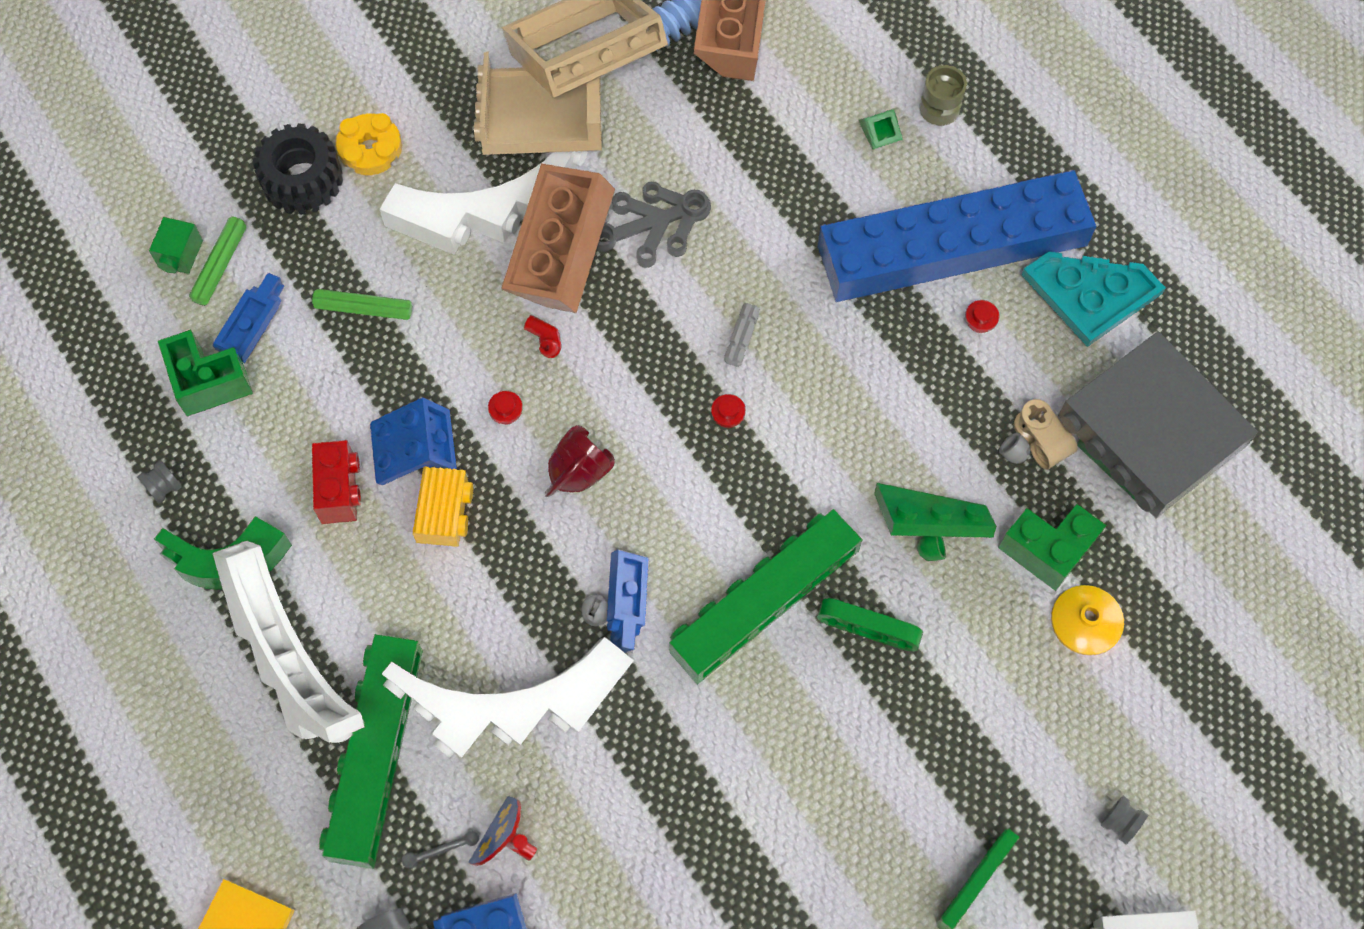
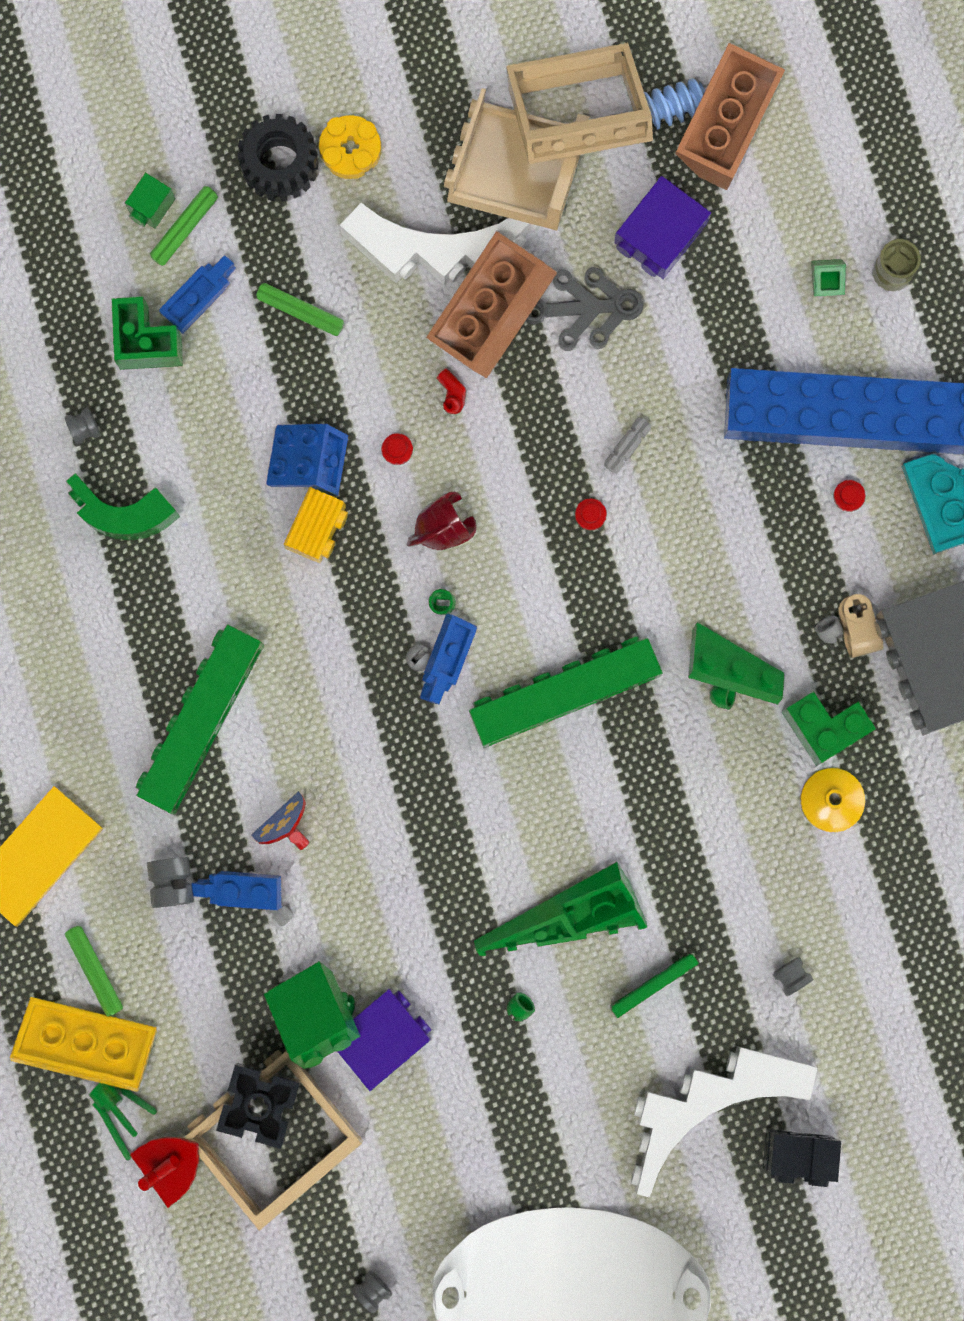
camera: 20 degrees right, 15 degrees up
(258, 616) = (144, 618): white arch -> none
(335, 482) = (230, 474): red brick -> none
(410, 860) = (206, 818): dark grey hinge -> none
(464, 716) = (323, 728): white arch -> none
(599, 537) = (442, 594): none -> green hinge
(703, 127) = (661, 228): none -> dark purple brick
(870, 624) = (644, 746): green beam -> none
(871, 819) = (590, 906): none -> green wedge

